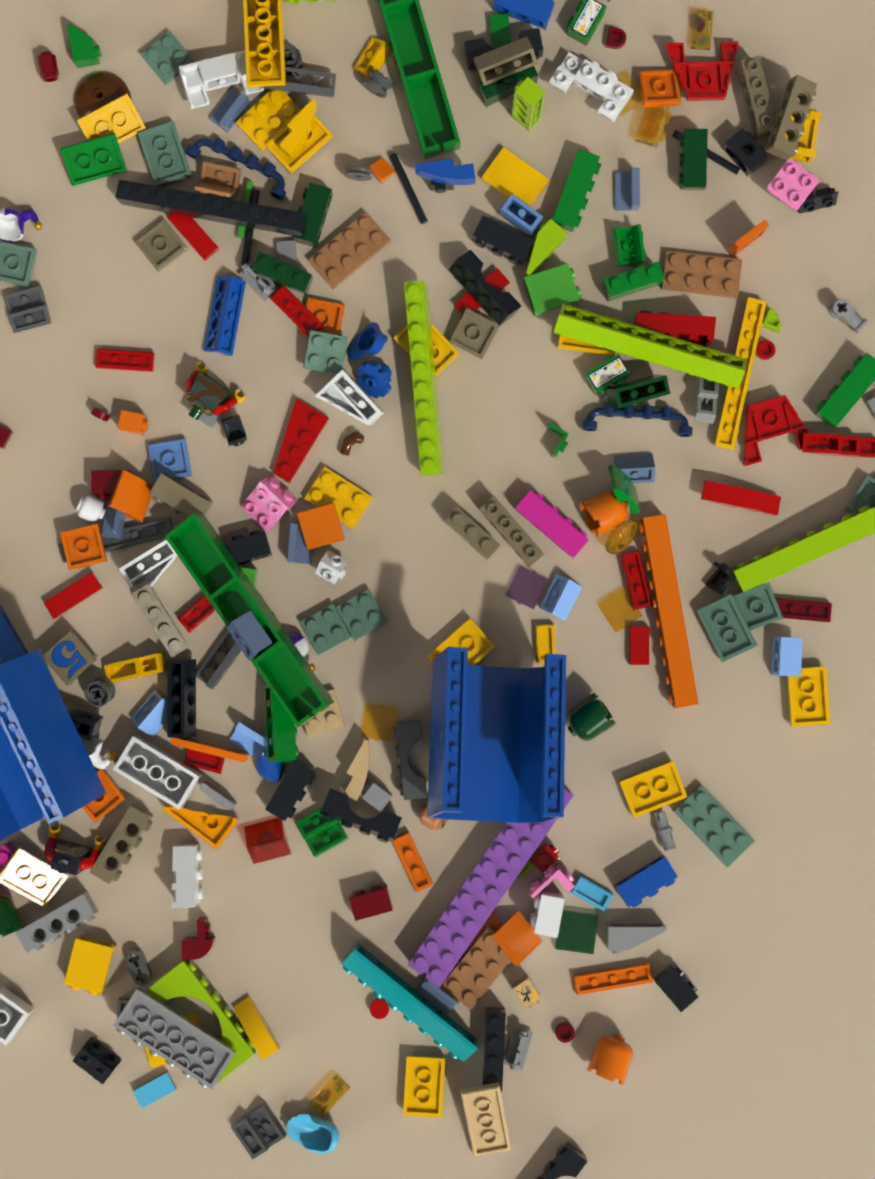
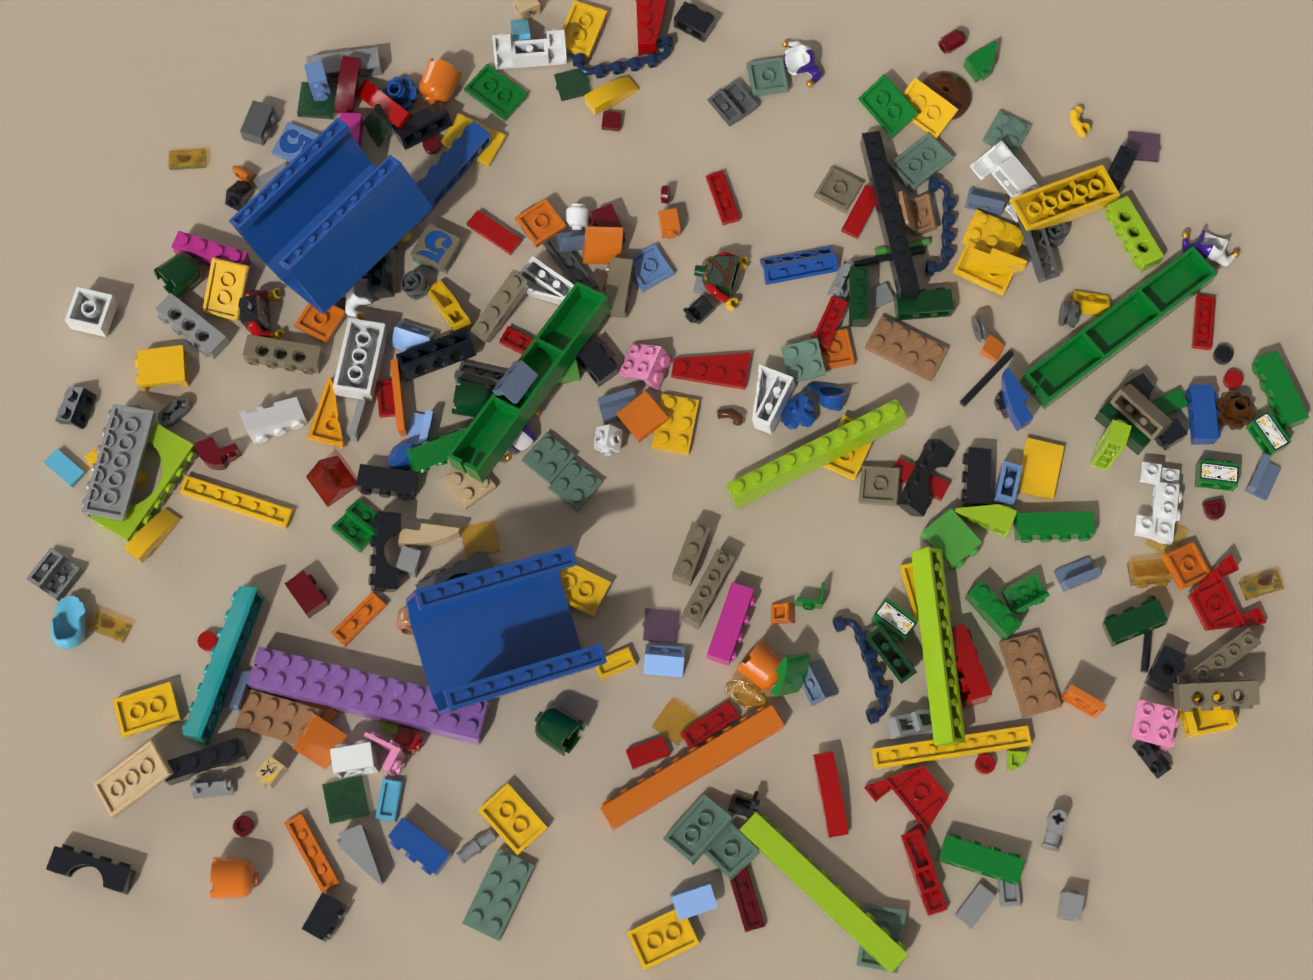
camera: 65 degrees right, 15 degrees down
(240, 679) = (470, 396): none -> dark green cylinder
(252, 937) = (236, 501): none -> yellow tile
(559, 472) = (783, 613): none -> orange slope

